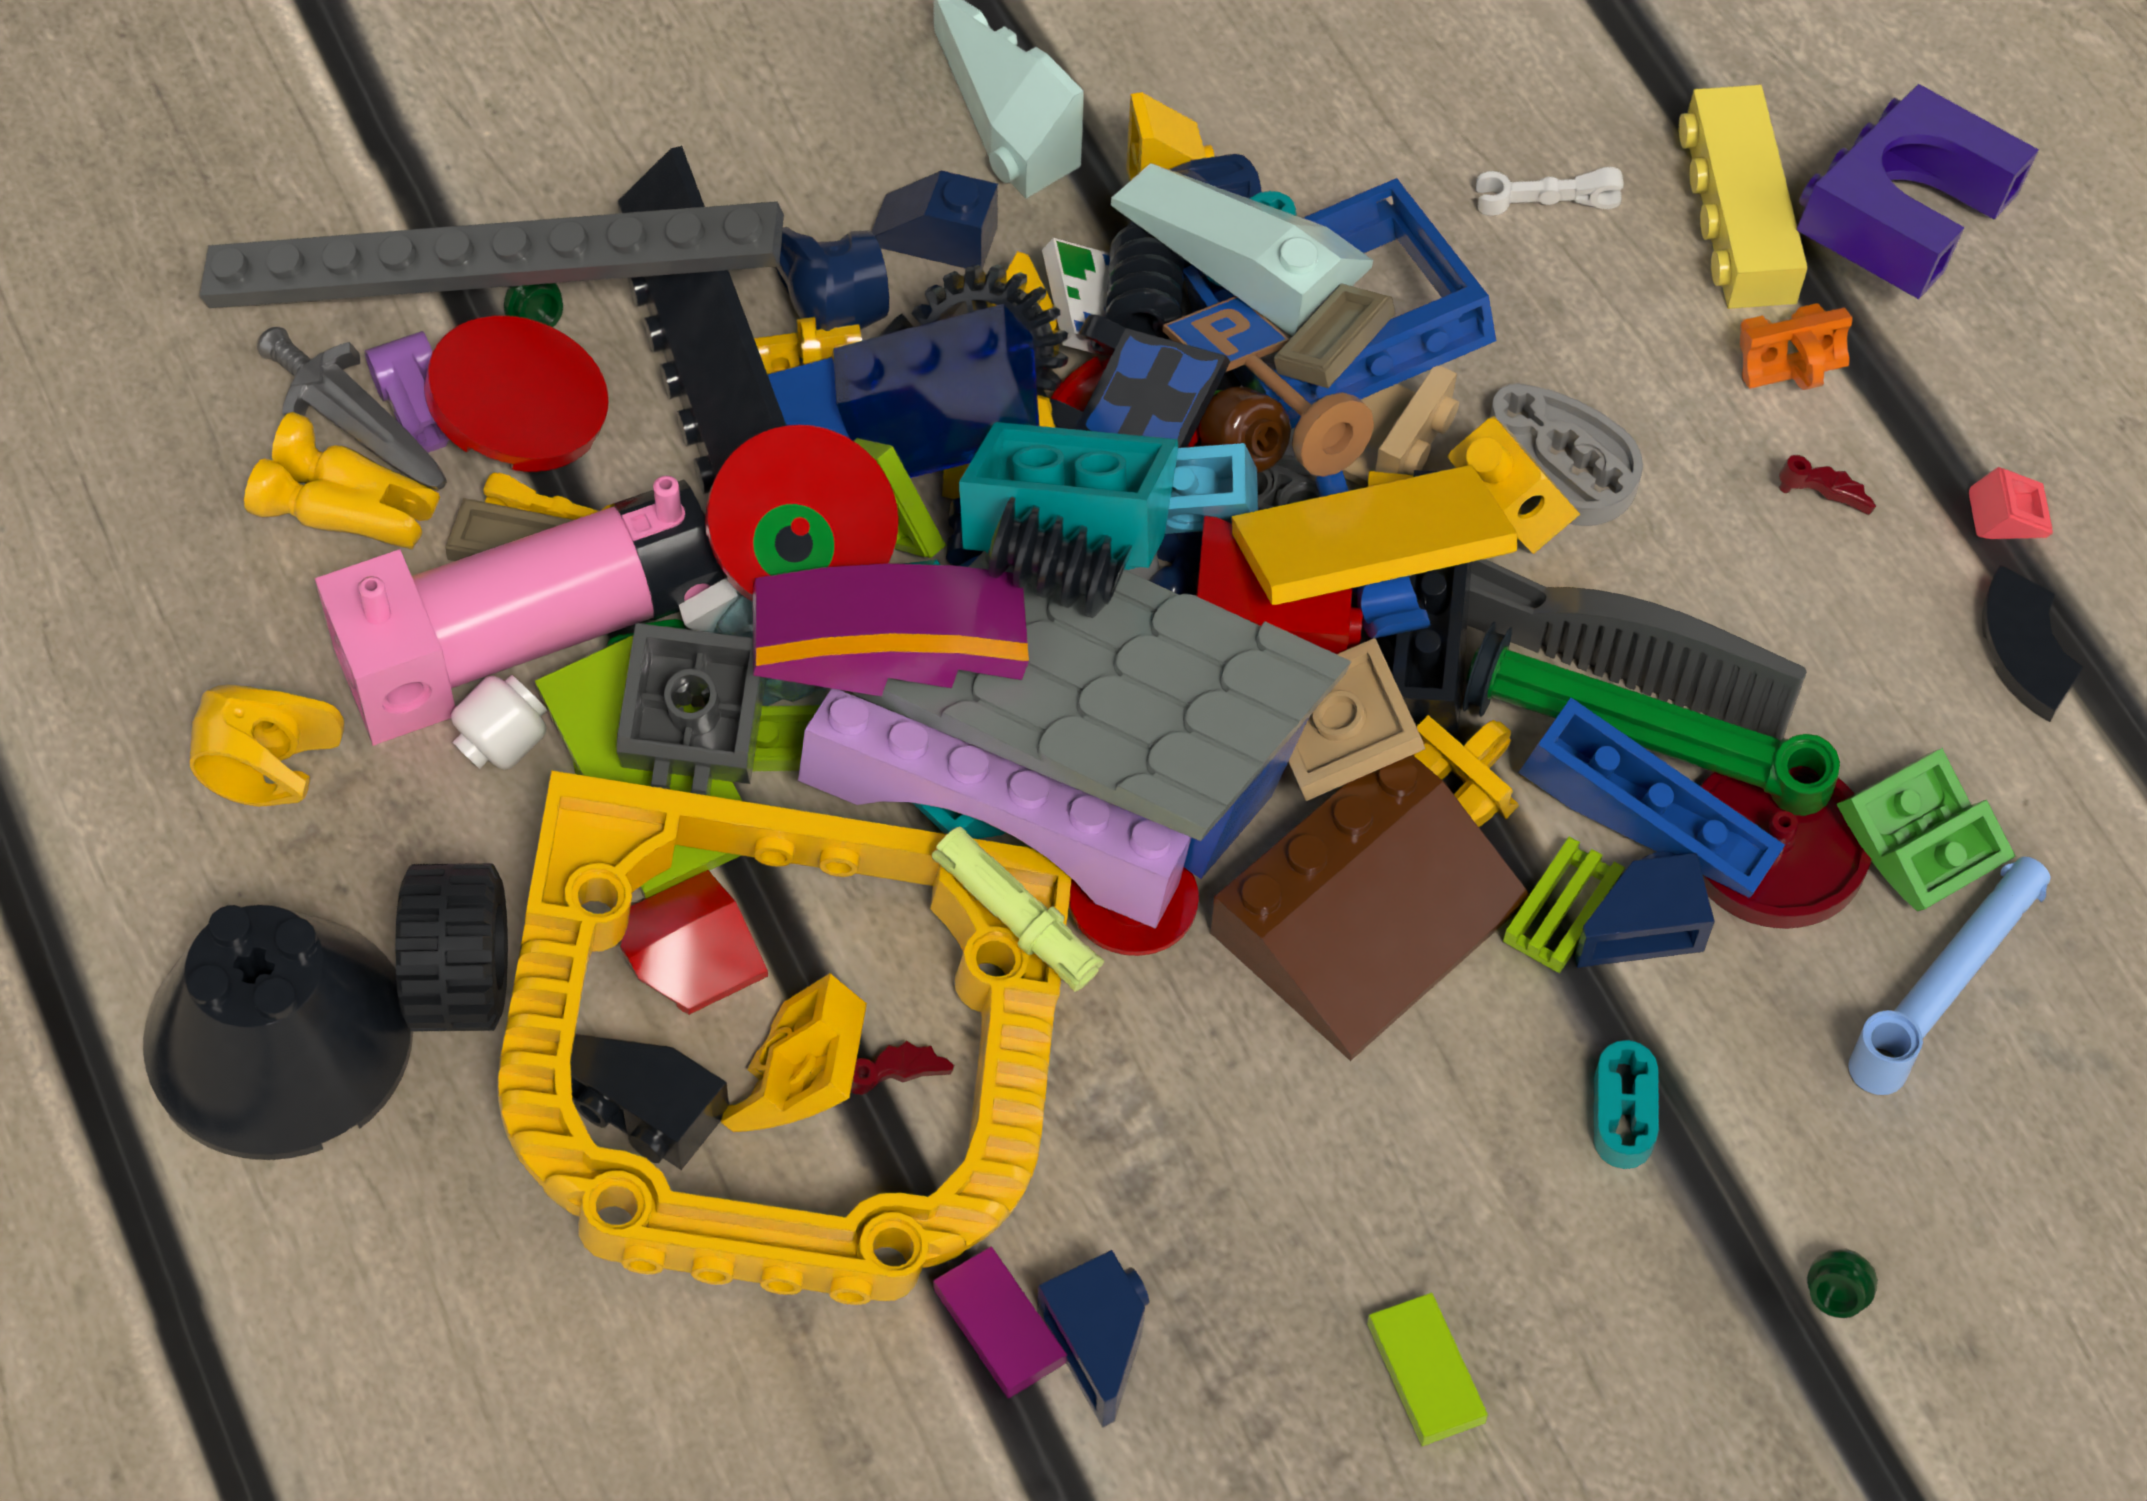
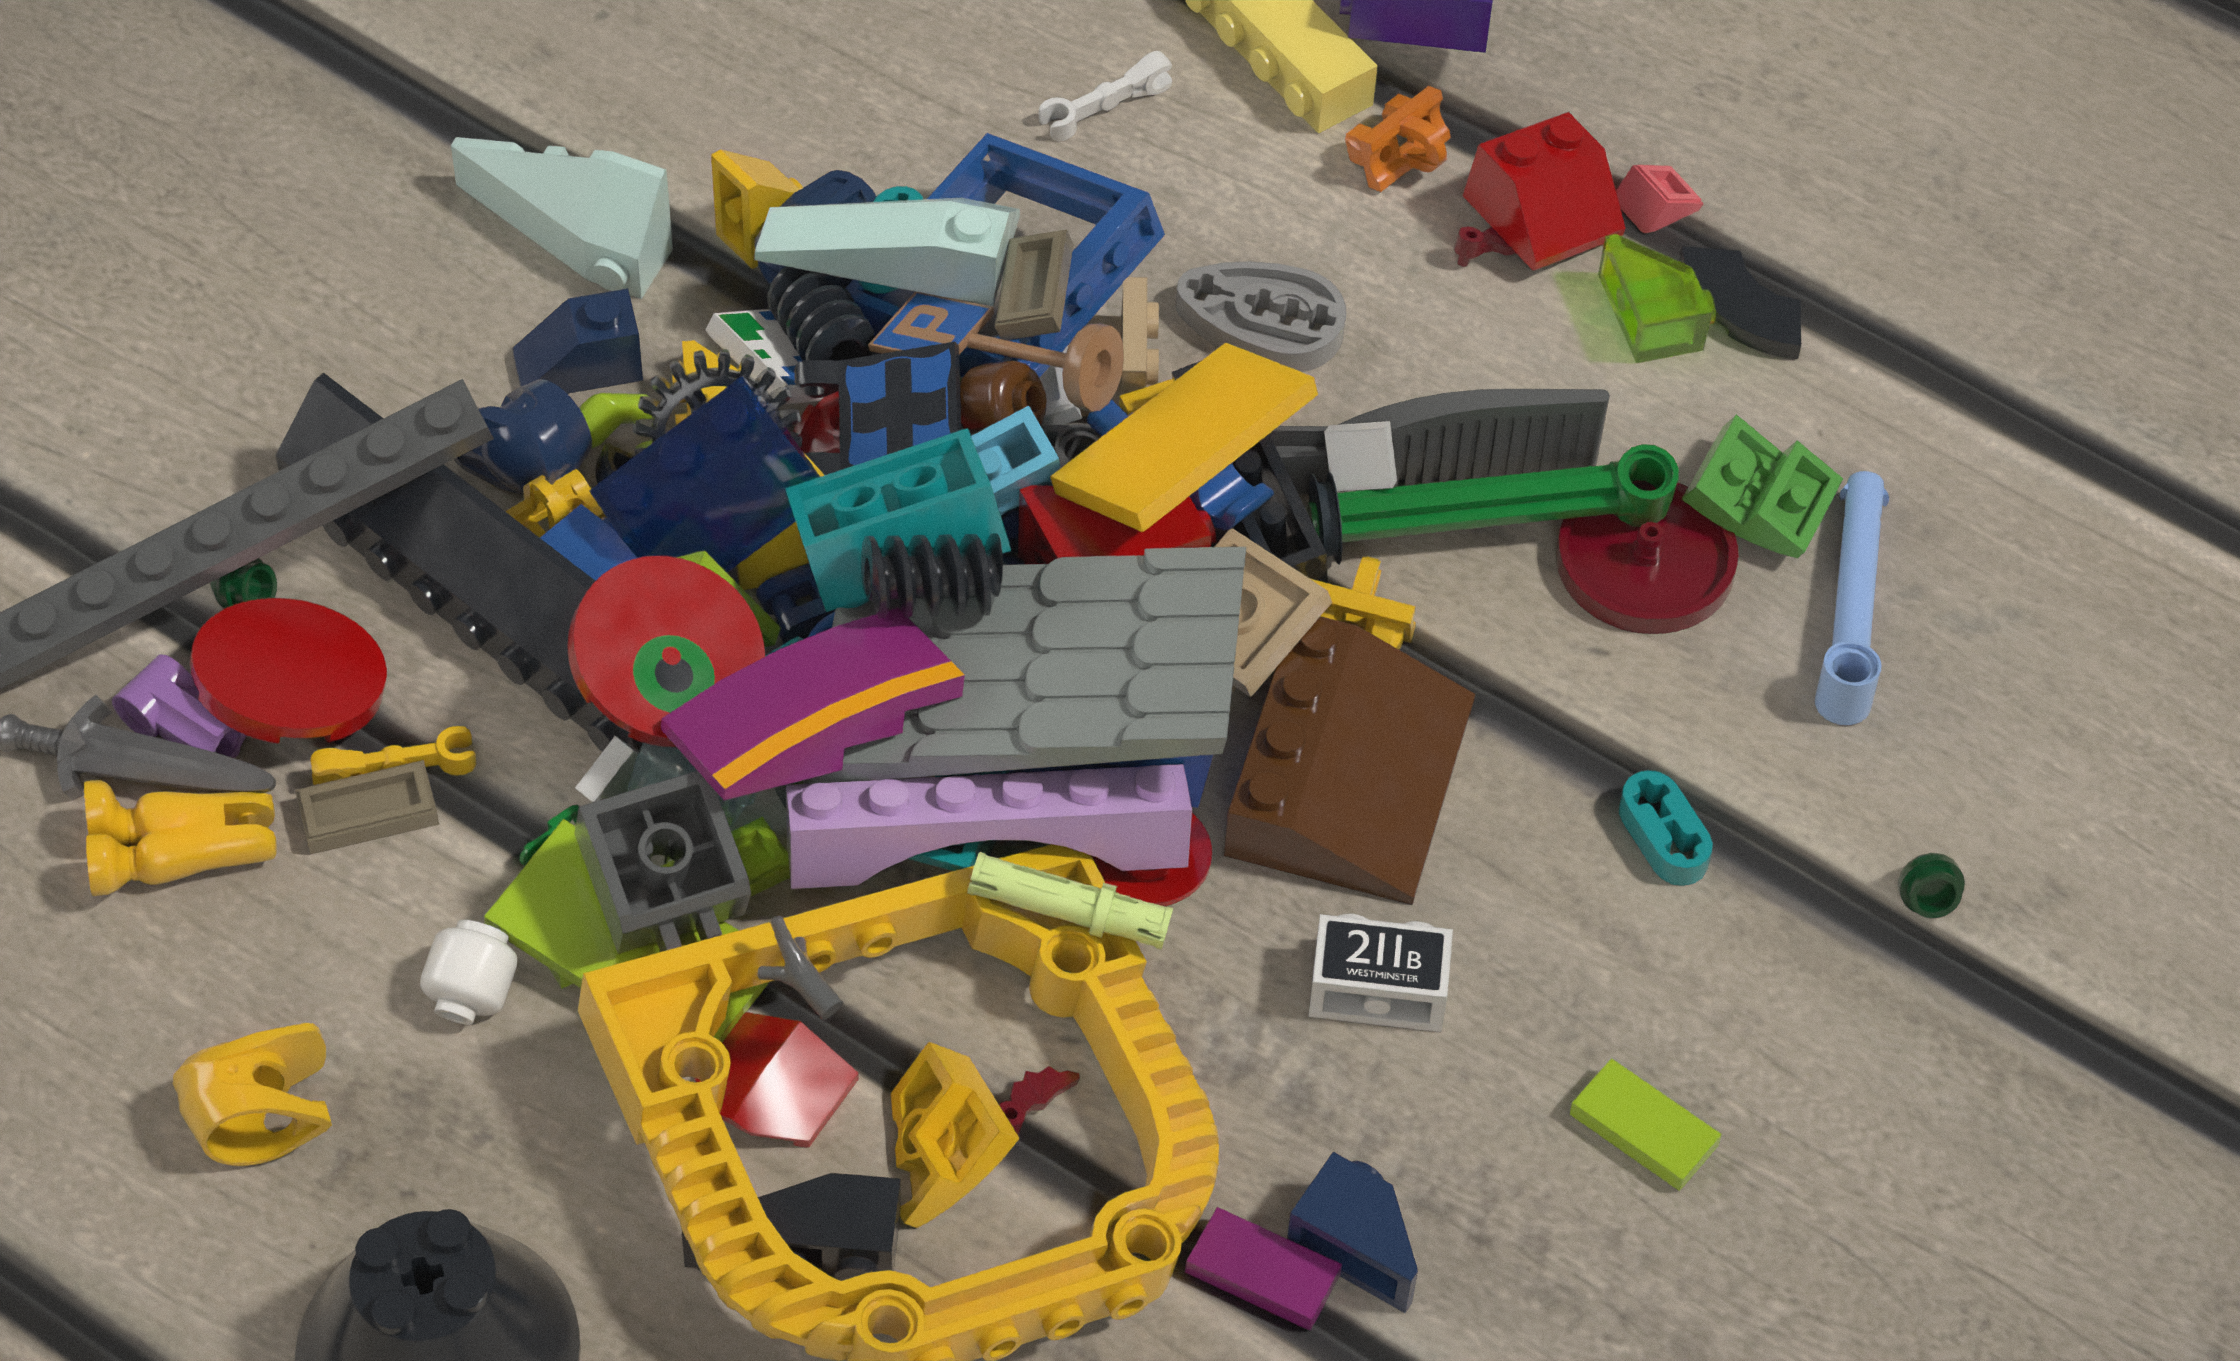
camera: 30 degrees left, 5 degrees down
(428, 632) = (341, 931): bright pink piece -> none
(451, 947) = (575, 1181): black tyre -> none
(735, 858) = (800, 972): none -> dark grey bar
(909, 288) = (608, 411): none -> lime arm
(1271, 1107) = (1381, 972): none -> brick
(1513, 479) = (1249, 331): yellow torso -> none
(1547, 626) = (1361, 456): none -> white tile
(1588, 865) = (1509, 648): lime tile -> none
(1647, 800) = (1511, 564): blue slope -> none
(1650, 913) = (1589, 658): dark blue slope -> none
(1898, 455) = (1546, 190): none -> red slope
(1939, 606) = (1655, 300): none -> clear neon green slope

